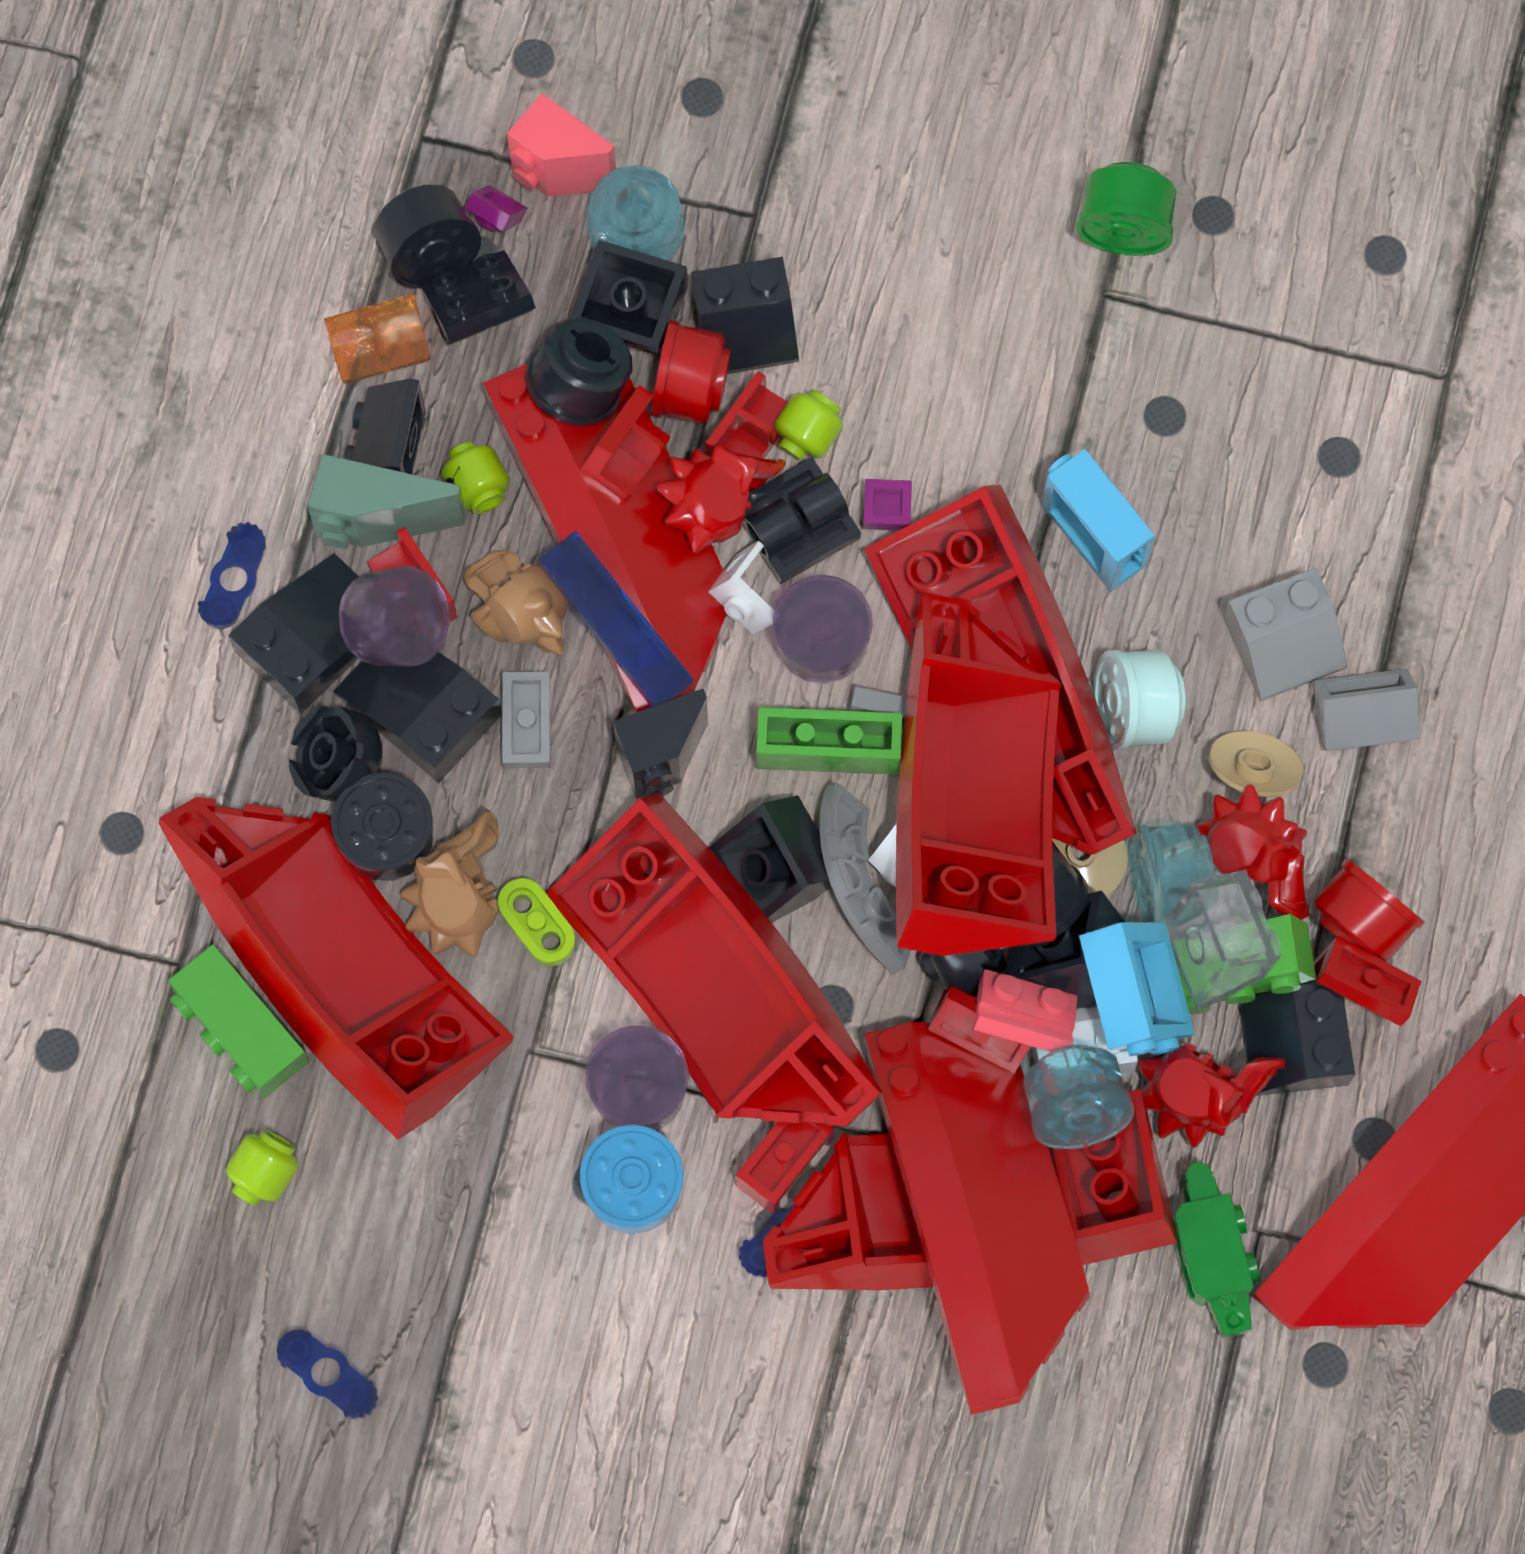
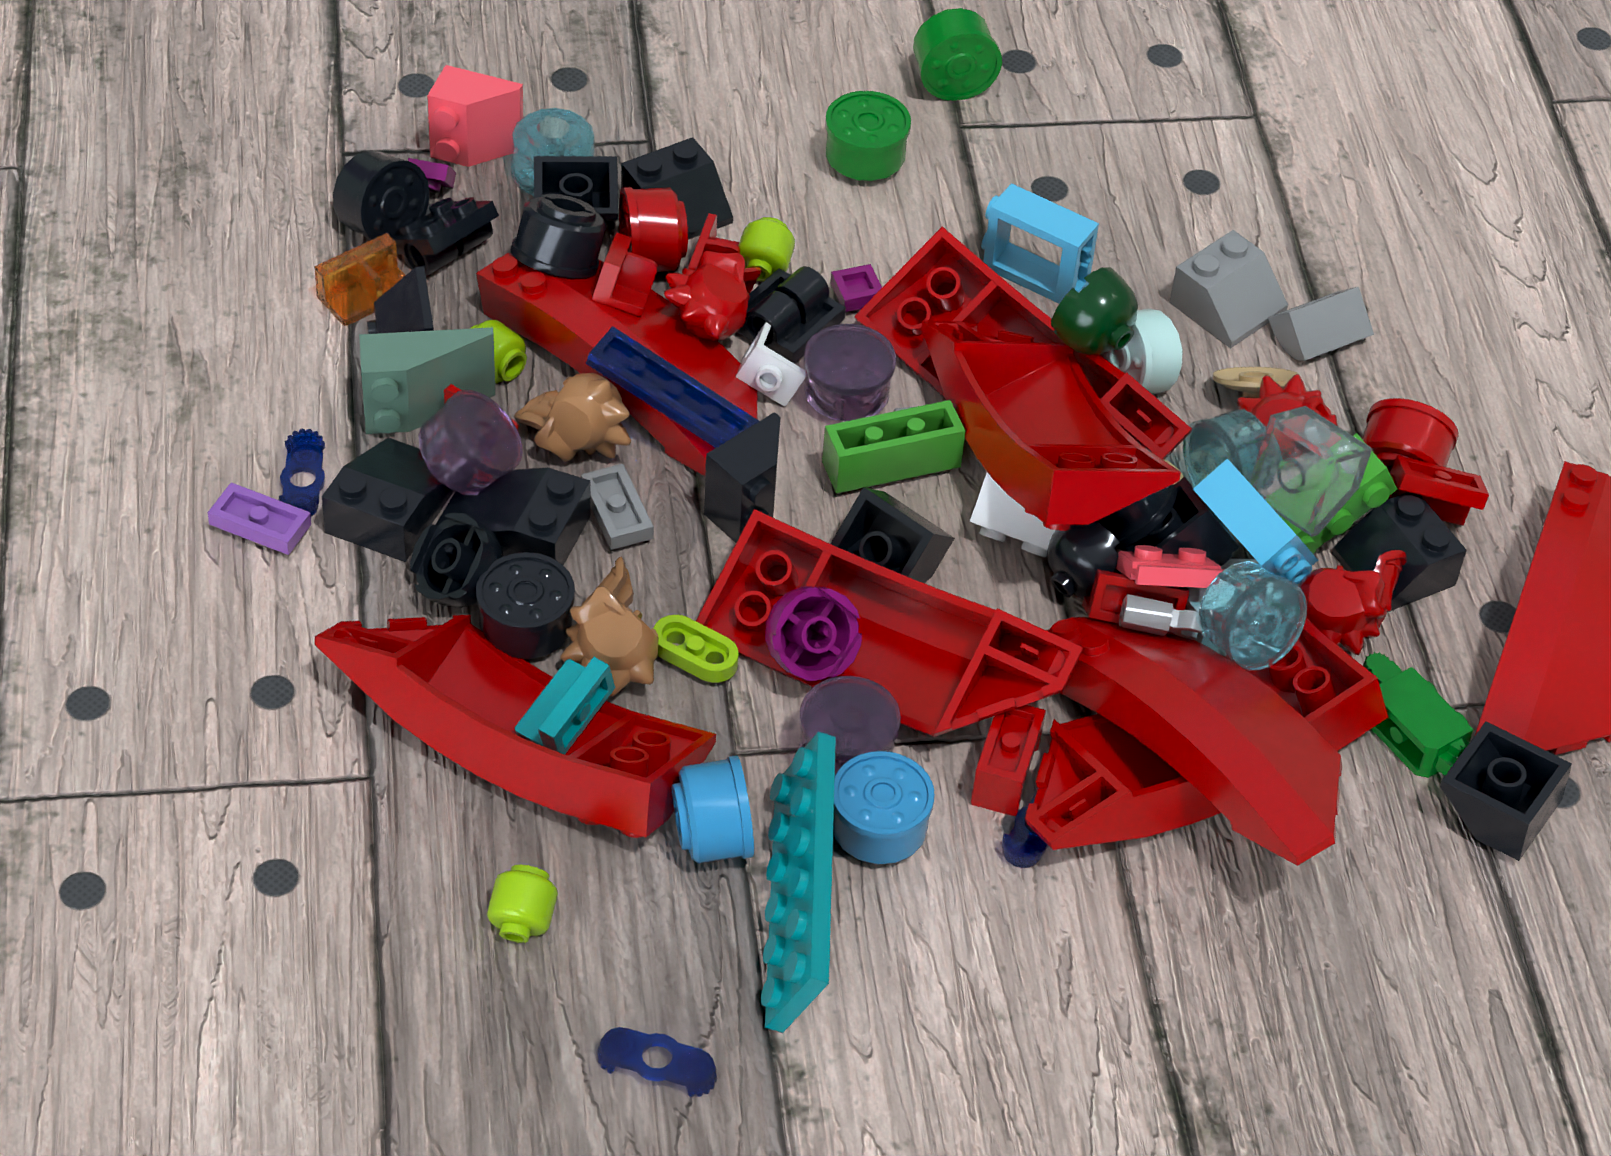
camera: 25 degrees left, 25 degrees down
(171, 623) = (259, 518): none -> medium lavender plate
(236, 1023) = (449, 795): bright green brick -> none
(380, 957) = (567, 705): none -> teal panel
(469, 1134) = (713, 811): none -> dark azure wheel
(520, 1241) = (800, 883): none -> teal plate
(641, 963) = (813, 633): none -> magenta cylinder
(844, 855) = (953, 523): light grey tile -> none
(979, 299) = (867, 135): none -> green wheel
(988, 1059) = (1158, 617): none -> light grey bar
(1088, 675) = (1097, 316): none -> dark green cylinder
(1252, 1363) = (1505, 789): none -> black slope

